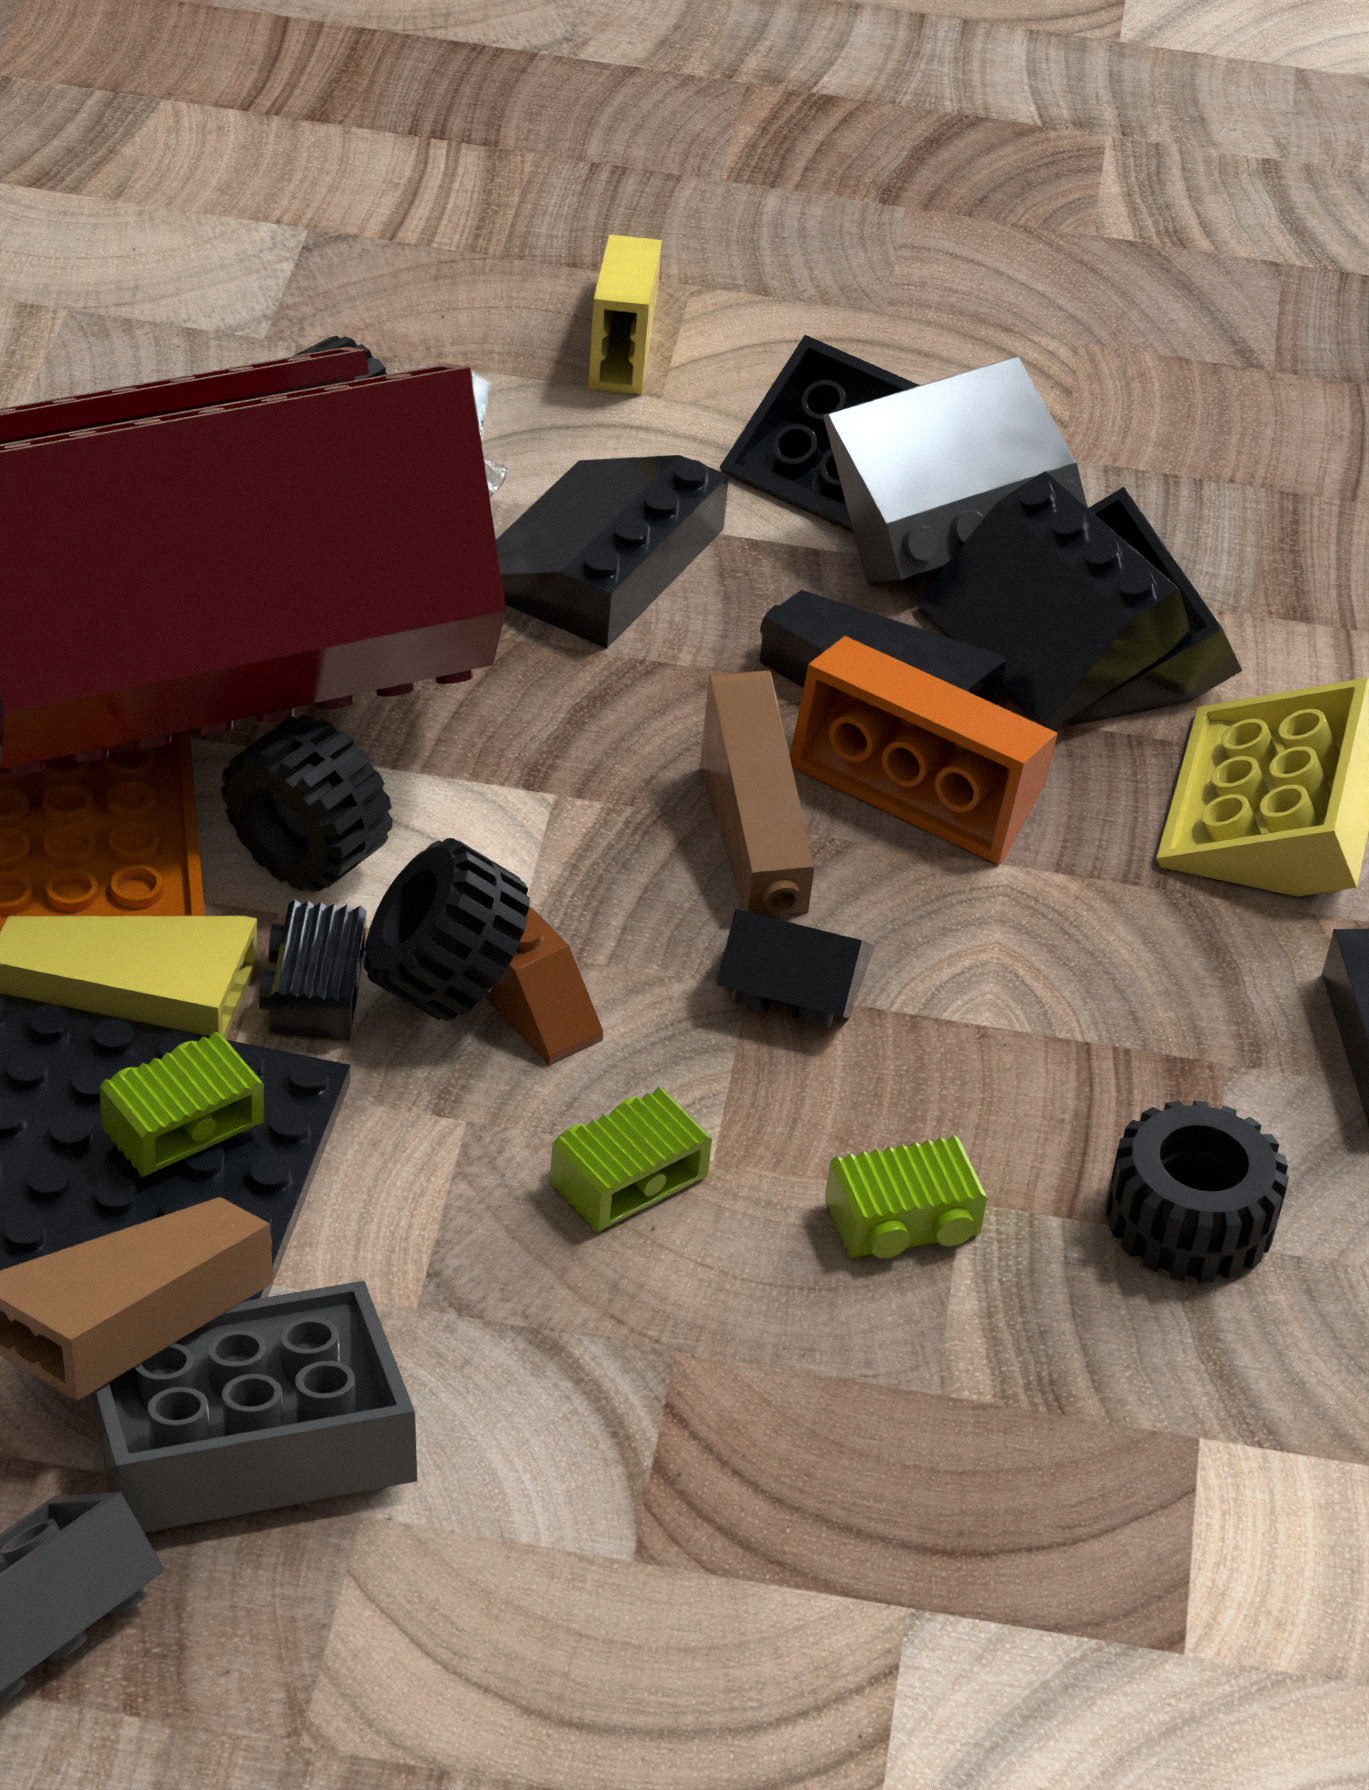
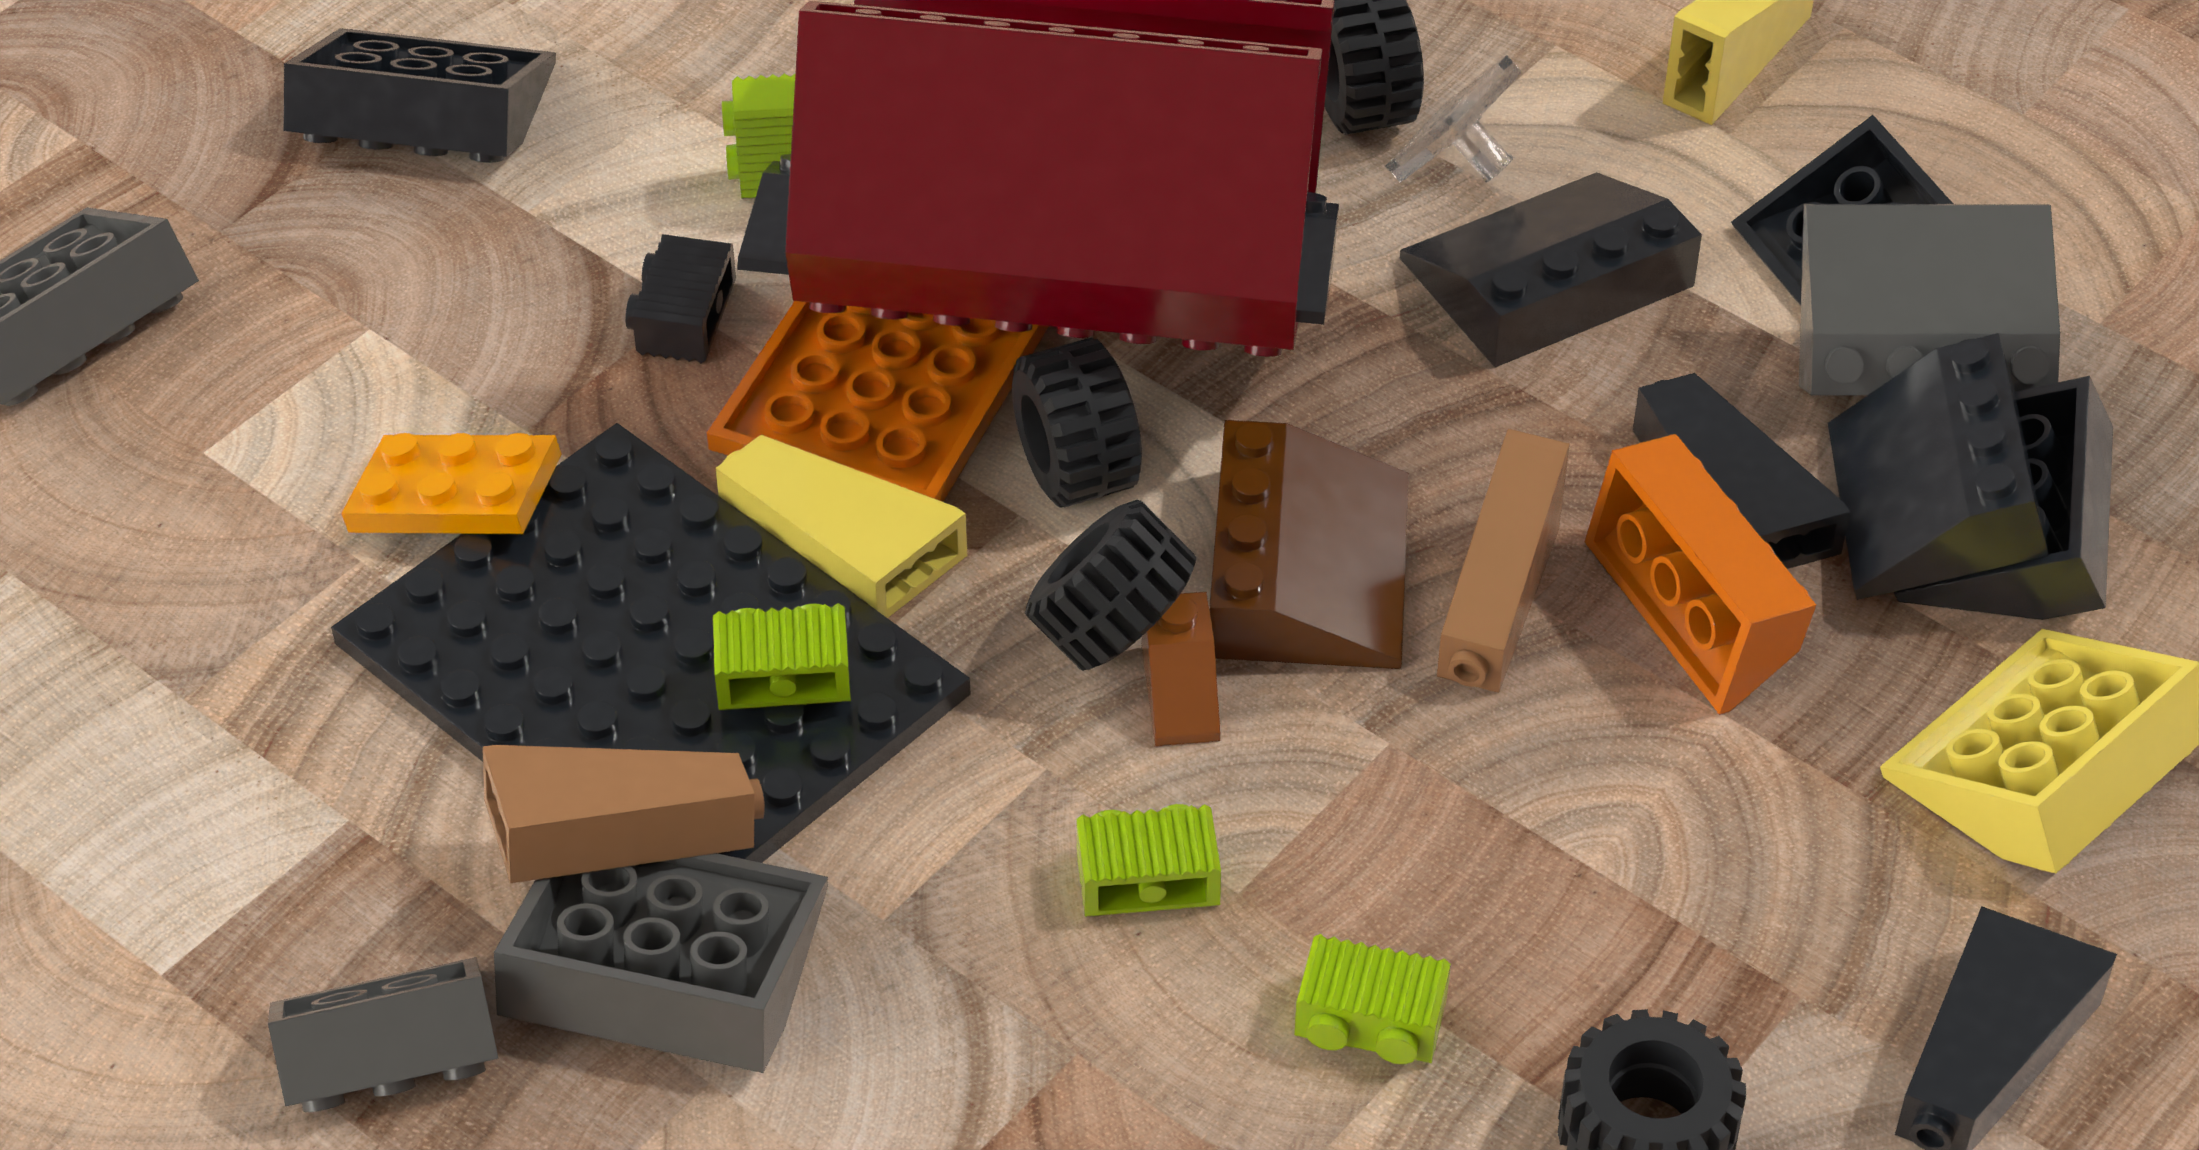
camera: 35 degrees right, 5 degrees up
(316, 970) = (991, 583): black brick -> none
(574, 842) = (1307, 551): none -> reddish brown slope
(794, 966) = (1431, 737): black slope -> none

